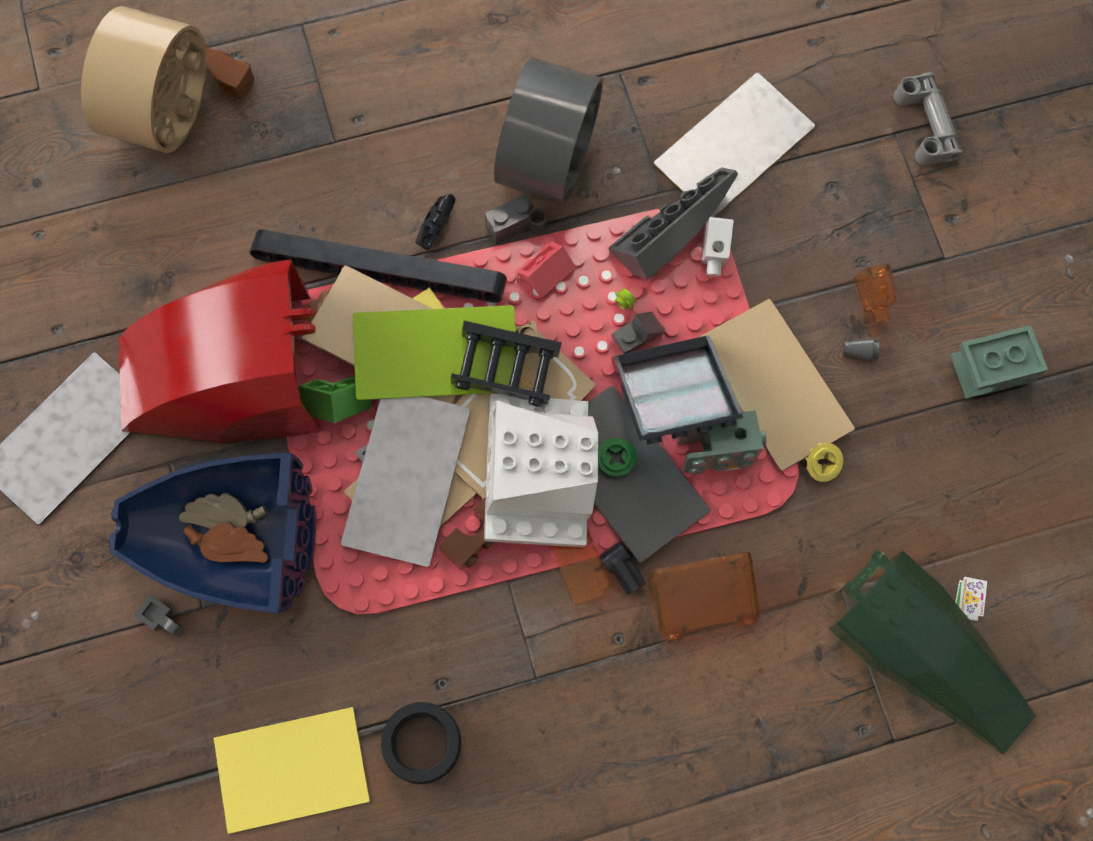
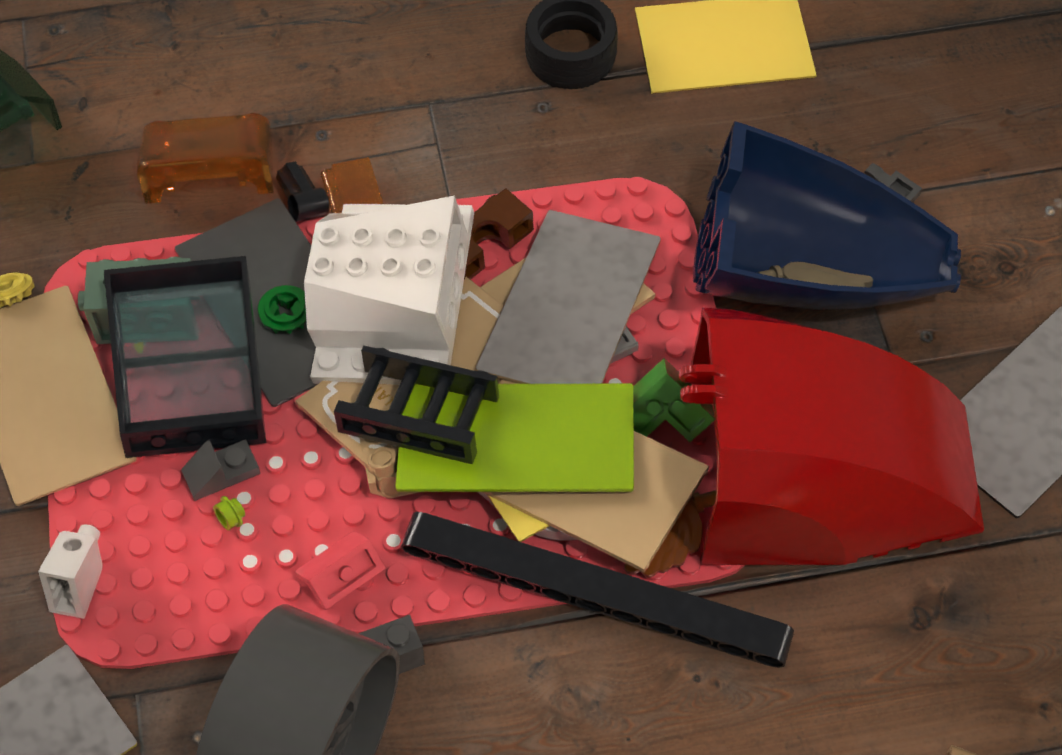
camera: 170 degrees left, 15 degrees down
(228, 544) = (808, 249): dark orange animal -> none
(435, 221) = (501, 664): black hinge -> none
(660, 238) = (136, 610): dark grey wedge -> none

